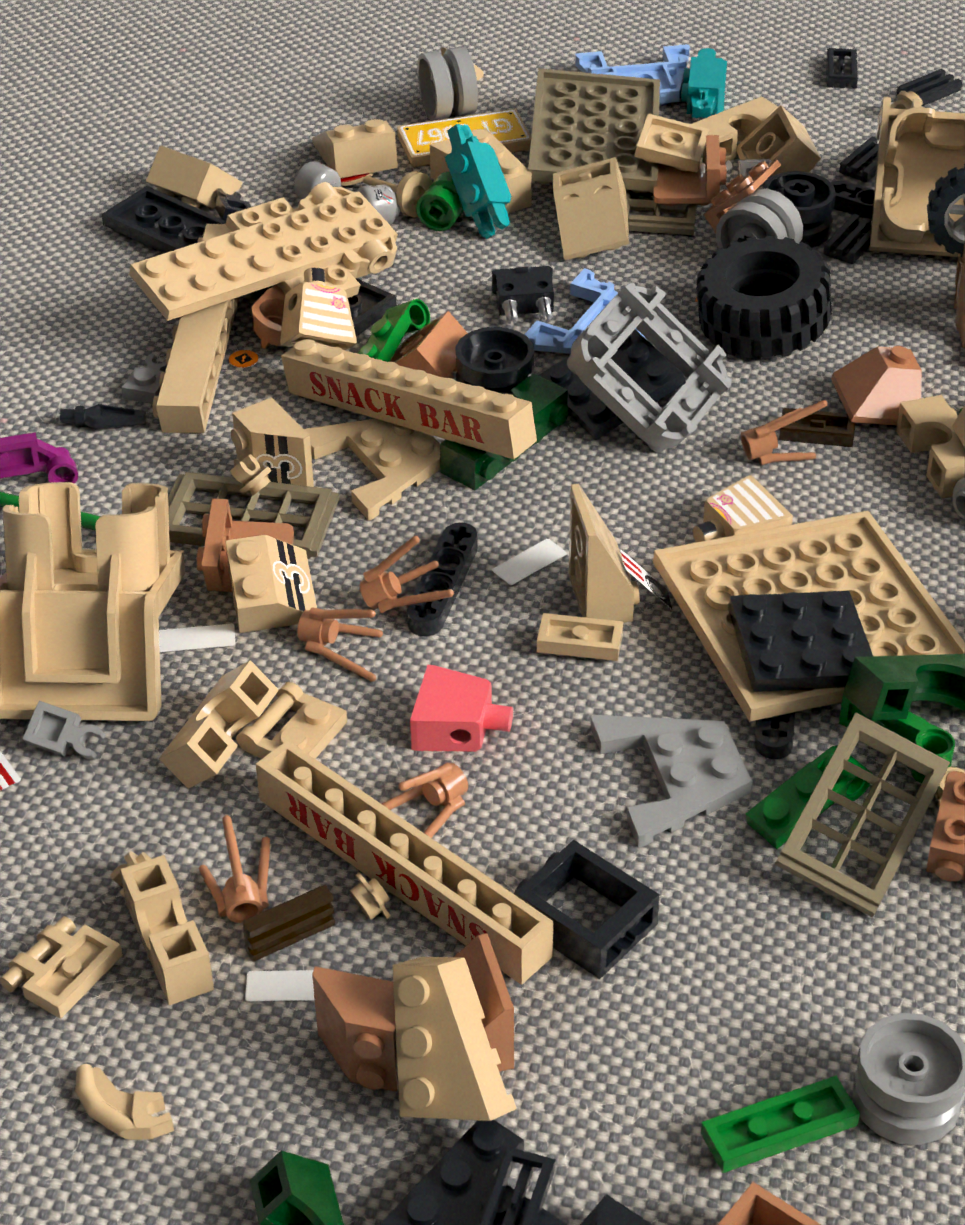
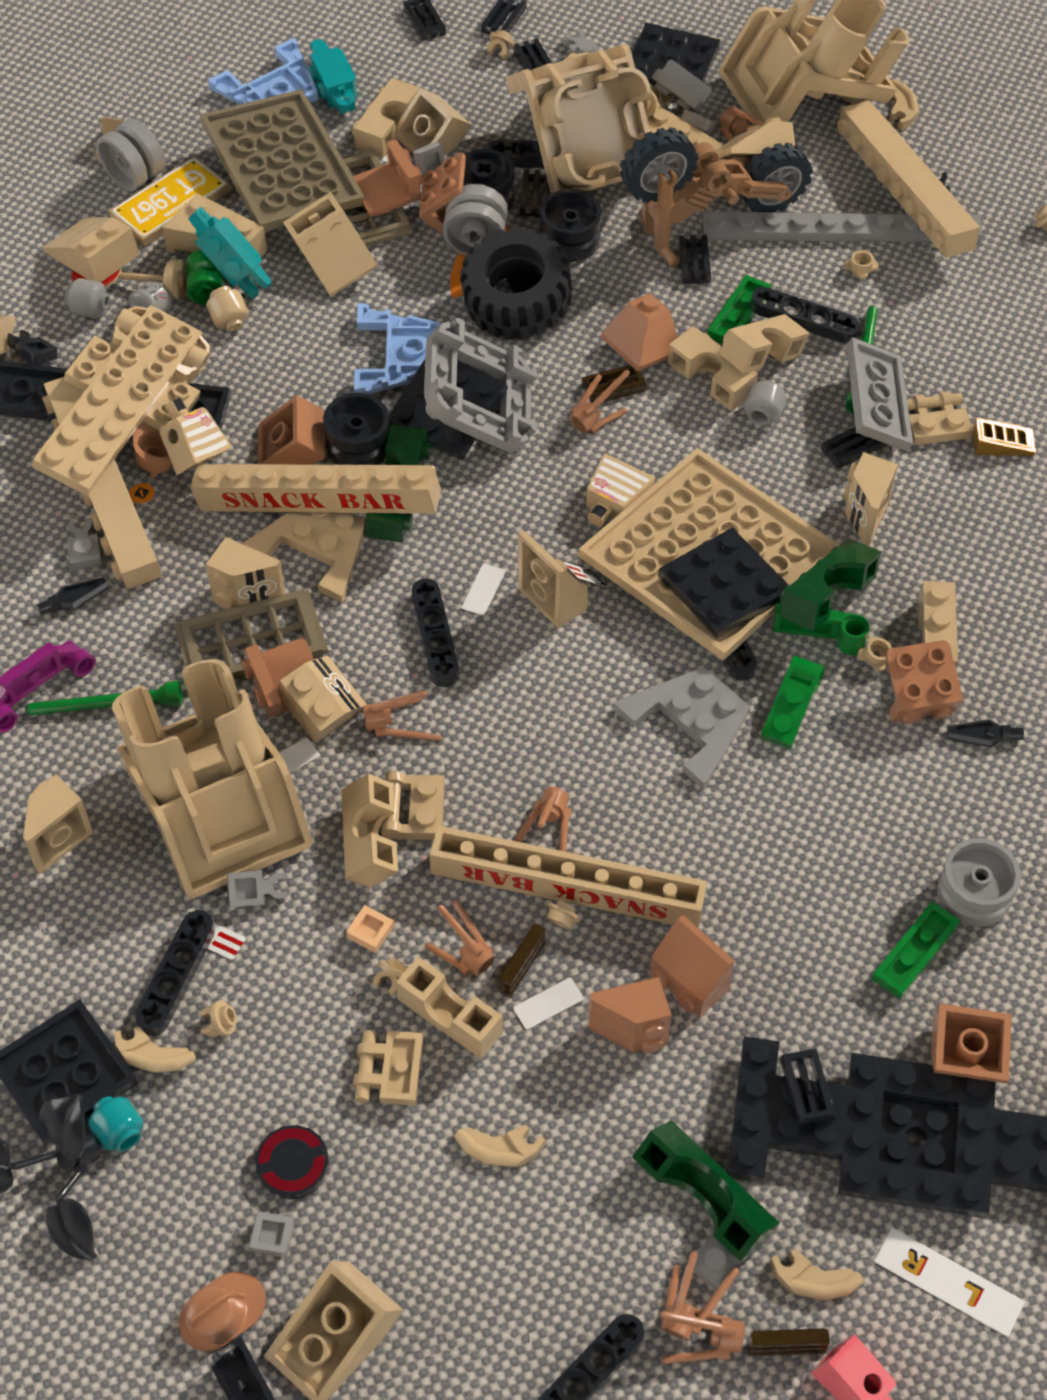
camera: 30 degrees left, 15 degrees up
(149, 821) = (370, 929): none -> light nougat plate
(250, 474) = (242, 608): tan plate -> none
(382, 588) = (402, 660): nougat plant -> none
(393, 326) = (251, 427): green plate -> none
(442, 1044) = (702, 1007): tan wedge -> none
(447, 233) = (227, 308): none -> tan head
(455, 712) = (522, 742): coral torso -> none
(524, 291) = (324, 343): black piece -> none
(580, 636) = (565, 640): tan plate -> none
(619, 934) = (718, 883): black window -> none
(671, 143) = (357, 156): tan plate -> none
(829, 878) = (834, 758): dark tan piece -> none
(859, 159) = (503, 94): black tile -> none
(866, 269) = (572, 221): none -> black wheel

